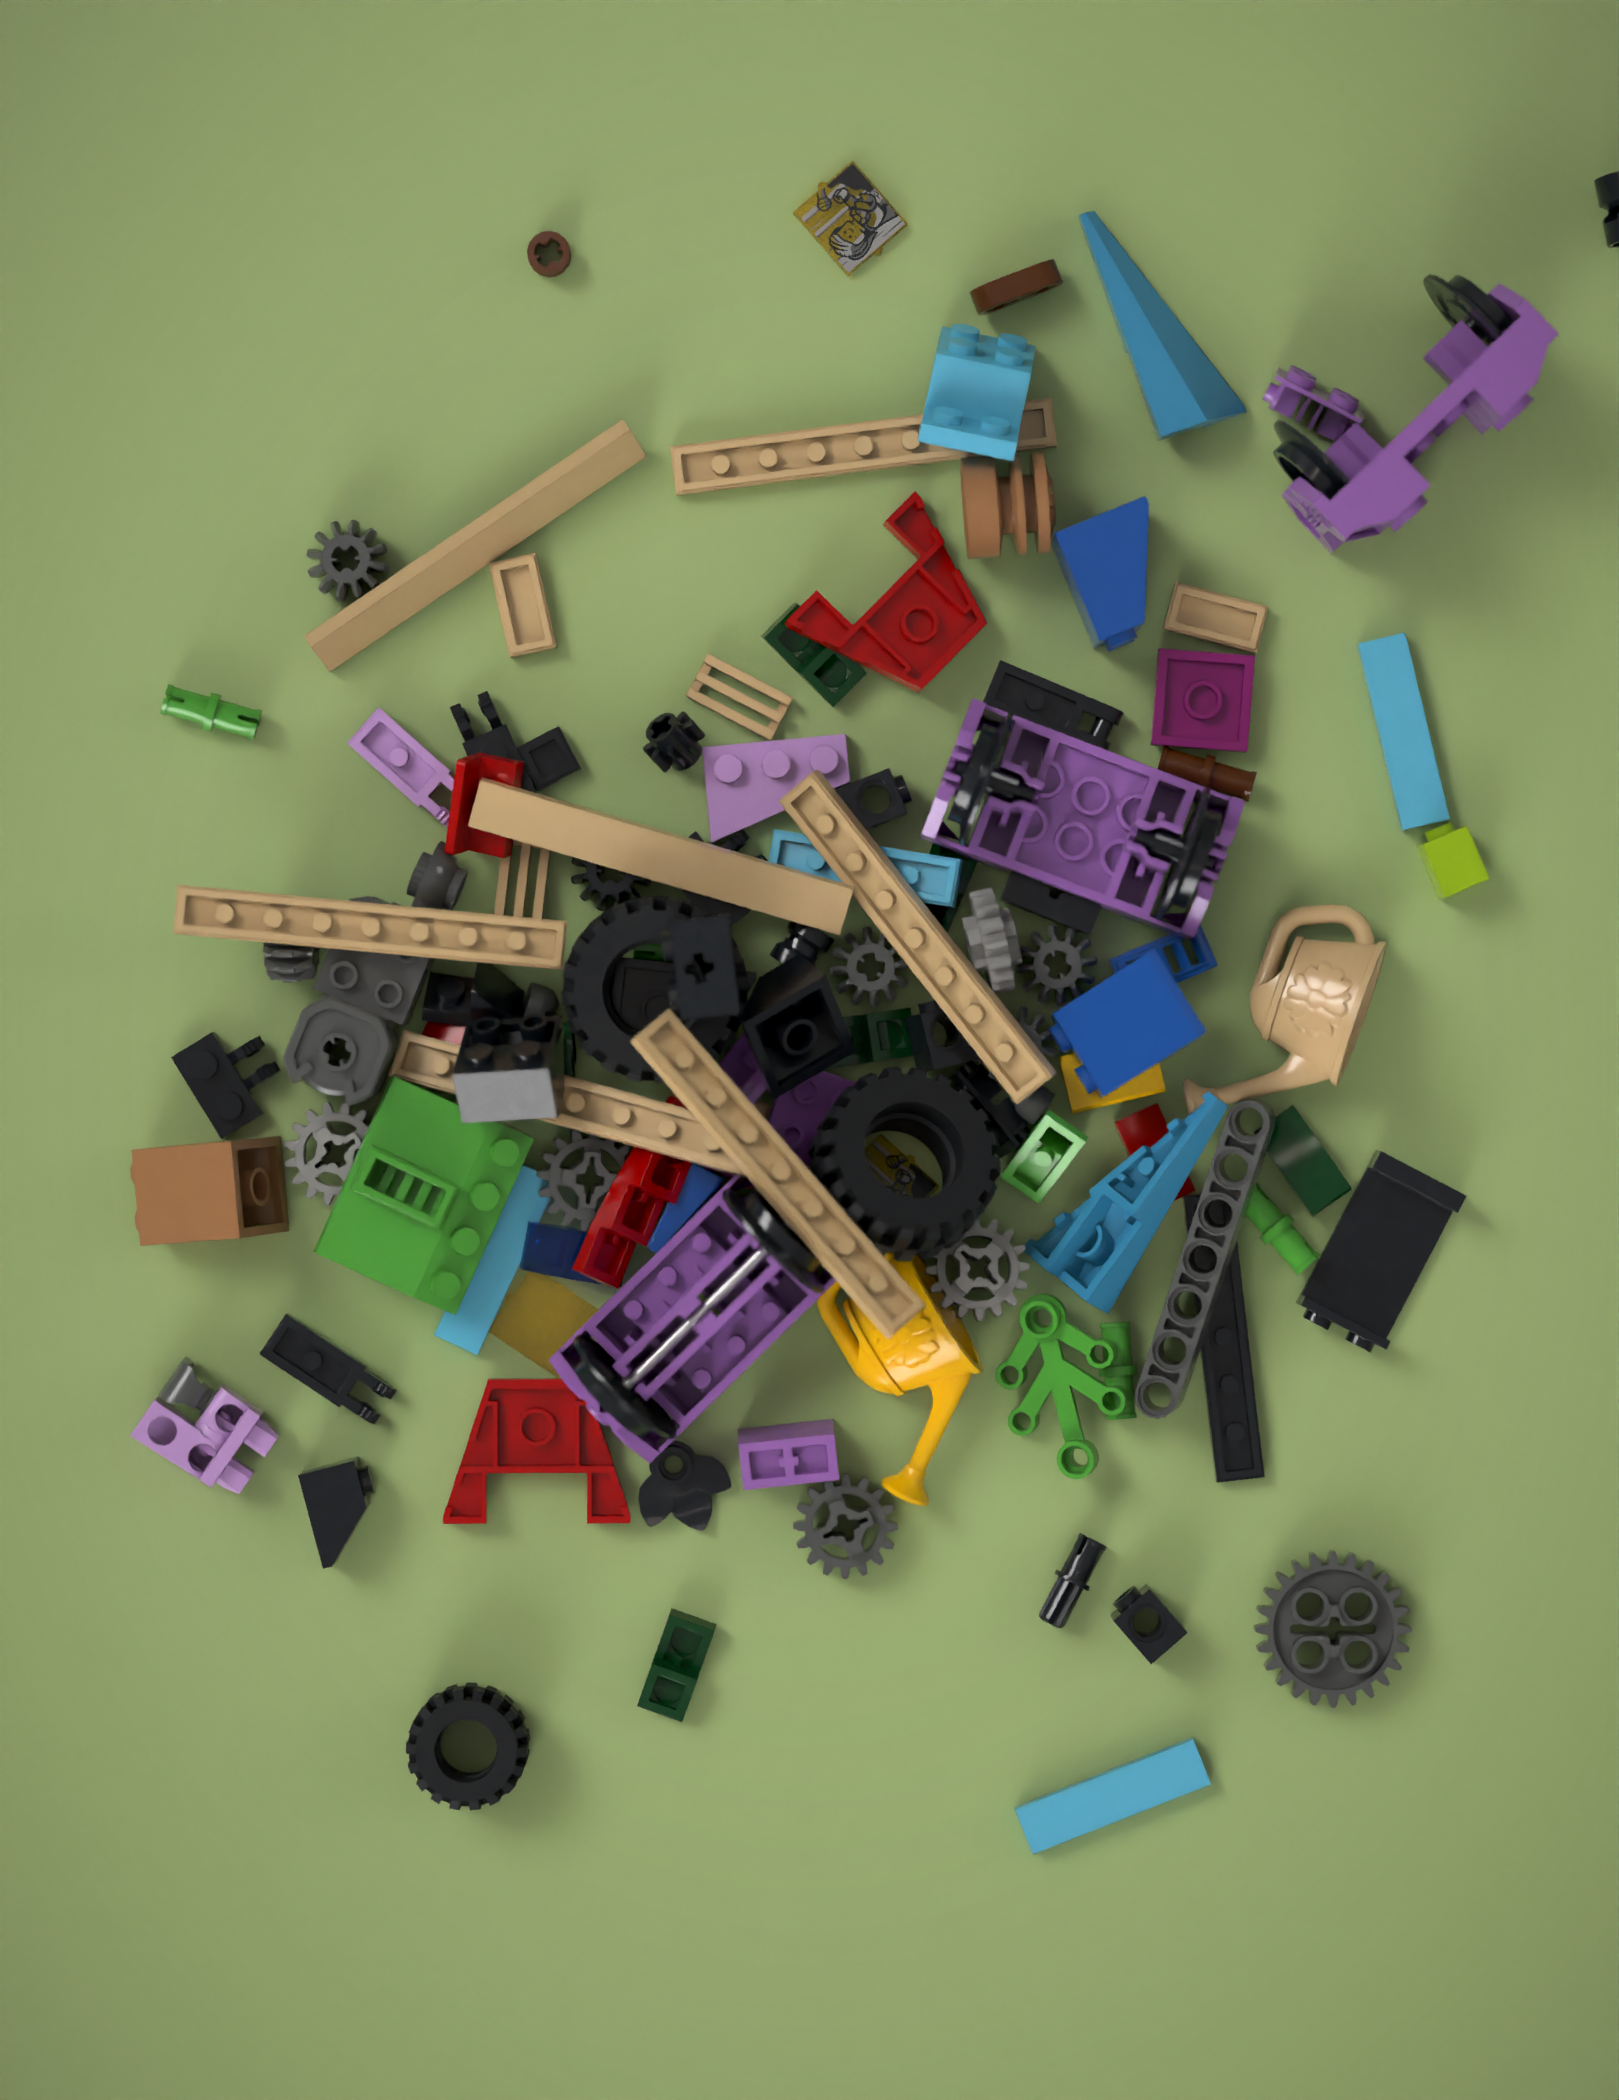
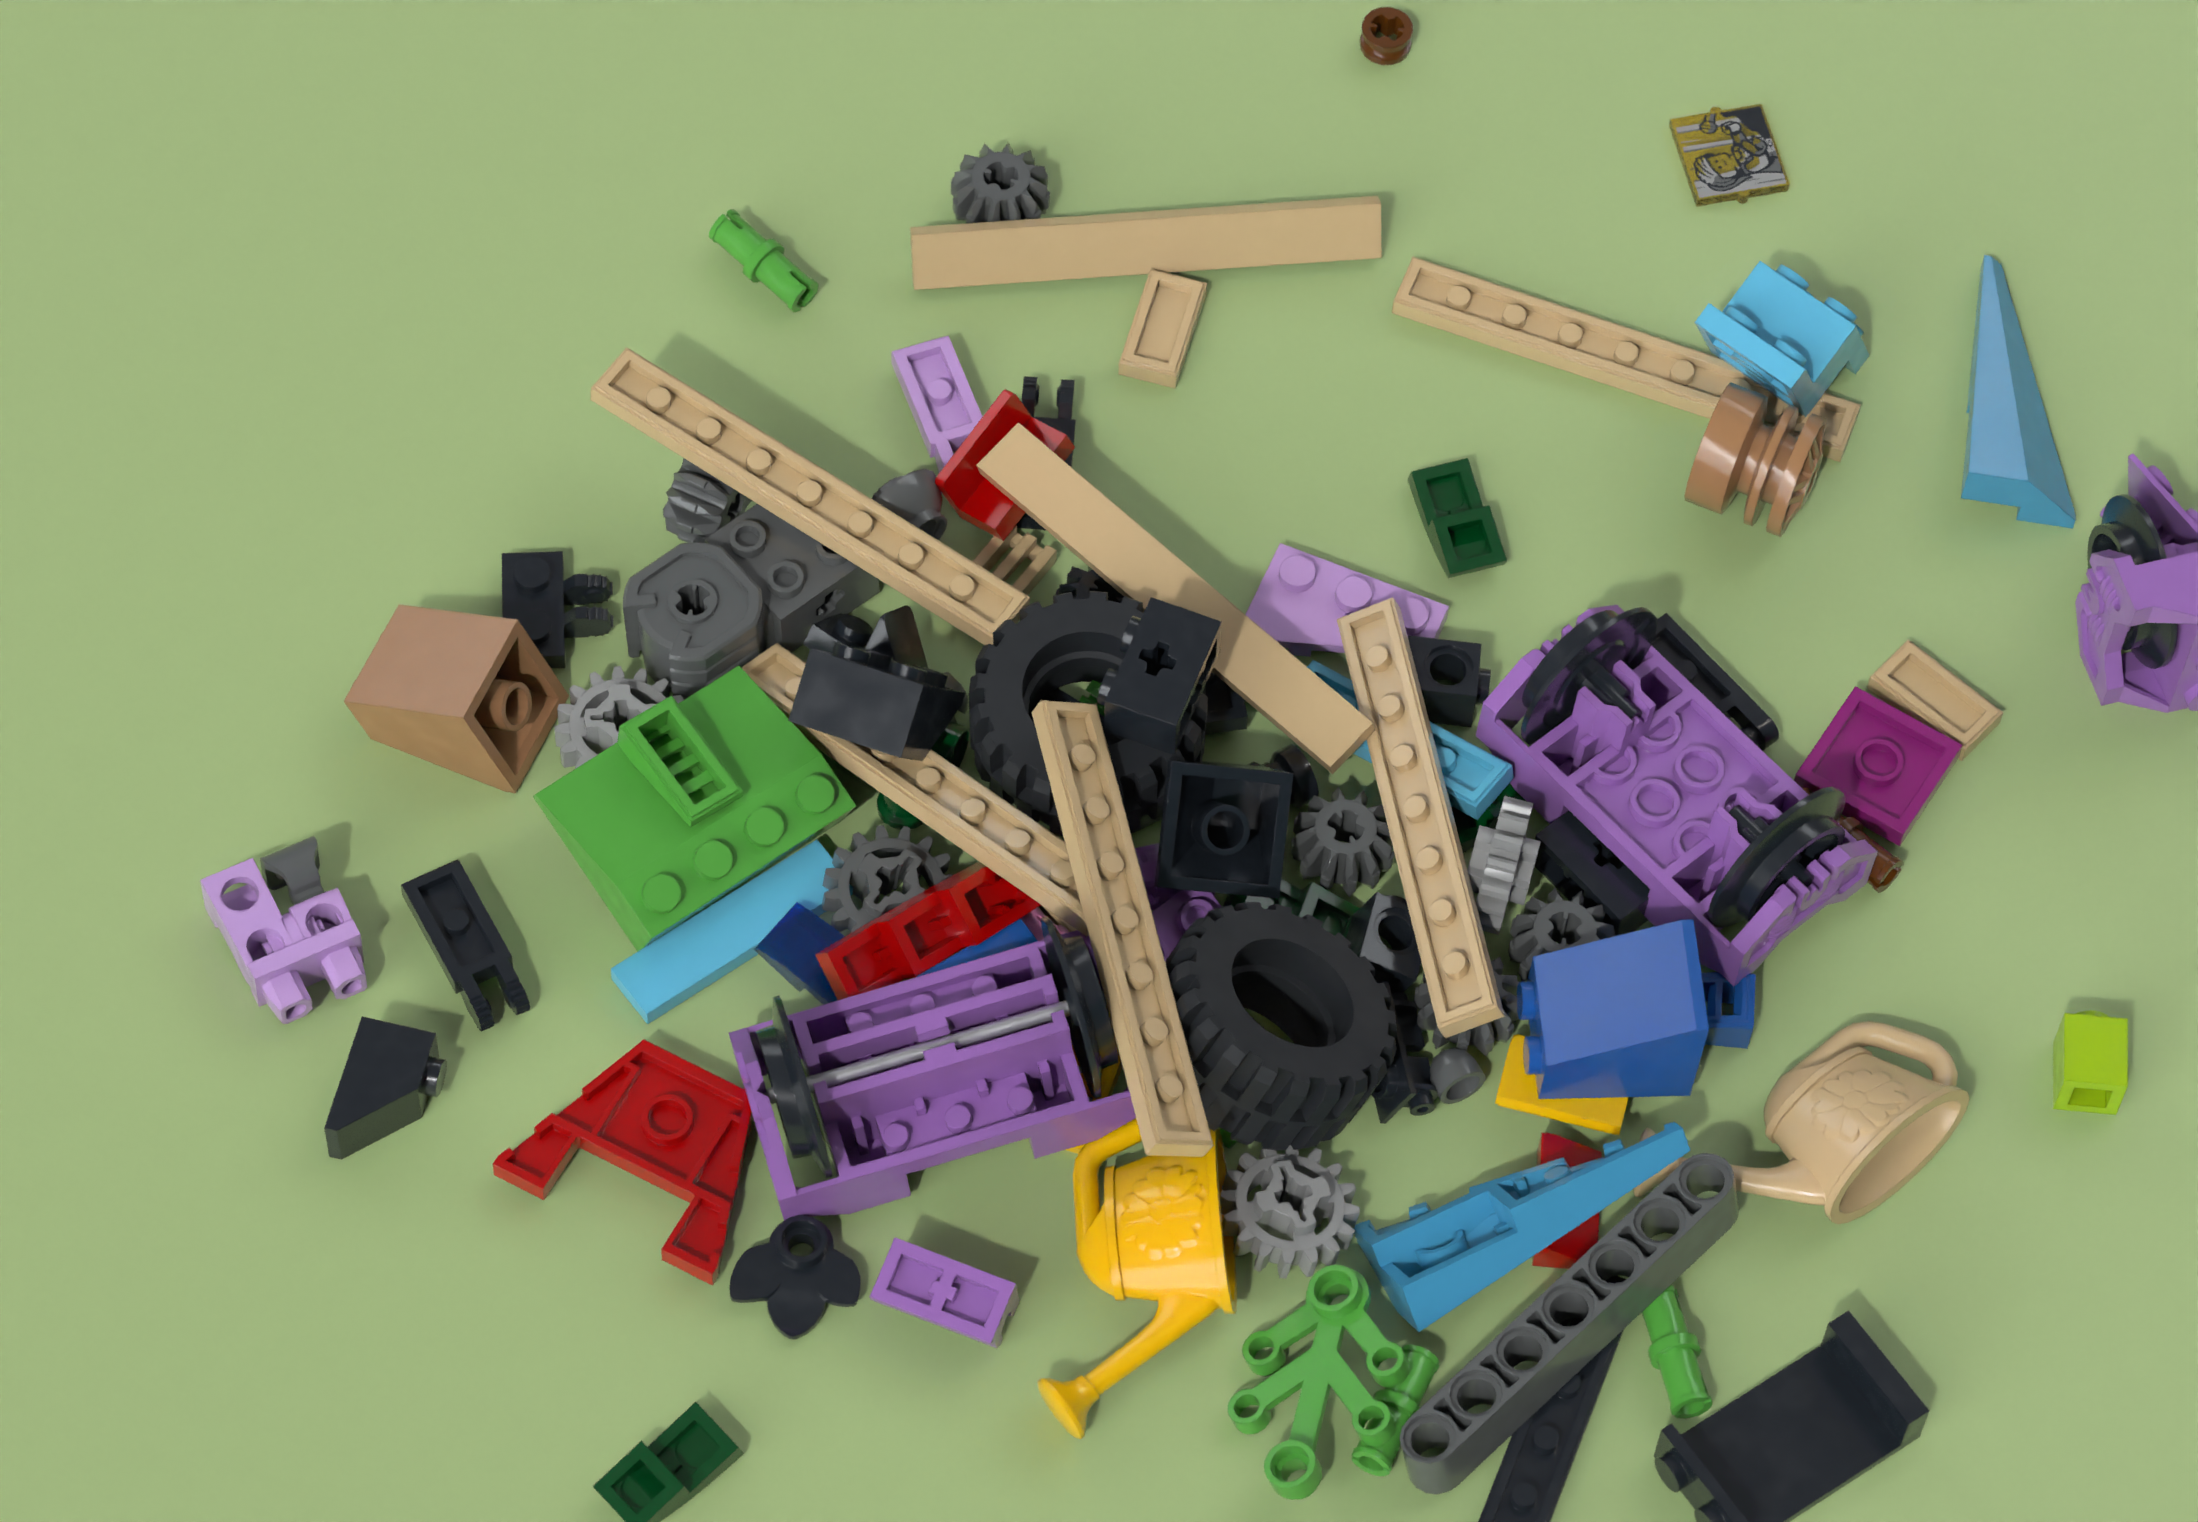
camera: 30 degrees right, 30 degrees down
(461, 1787) = (355, 1369): black tyre -> none
(541, 1318) = (727, 1008): clear yellow piece -> none
(548, 758) = (1108, 472): black tile -> none
(673, 741) = (1252, 517): black gear -> none
(775, 715) = (1323, 484): tan tile -> none
(853, 1545) = (995, 1413): dark grey gear -> none
(915, 622) = (1583, 535): red wing -> none
(1016, 287) = (1879, 285): reddish brown beam -> none
(1043, 1156) = (1439, 1122): bright green slope -> none
(1107, 571) = (1838, 569): blue slope -> none
(1305, 1162) = (1746, 1296): dark green slope -> none
(1403, 731) = (2097, 908): medium azure tile -> none

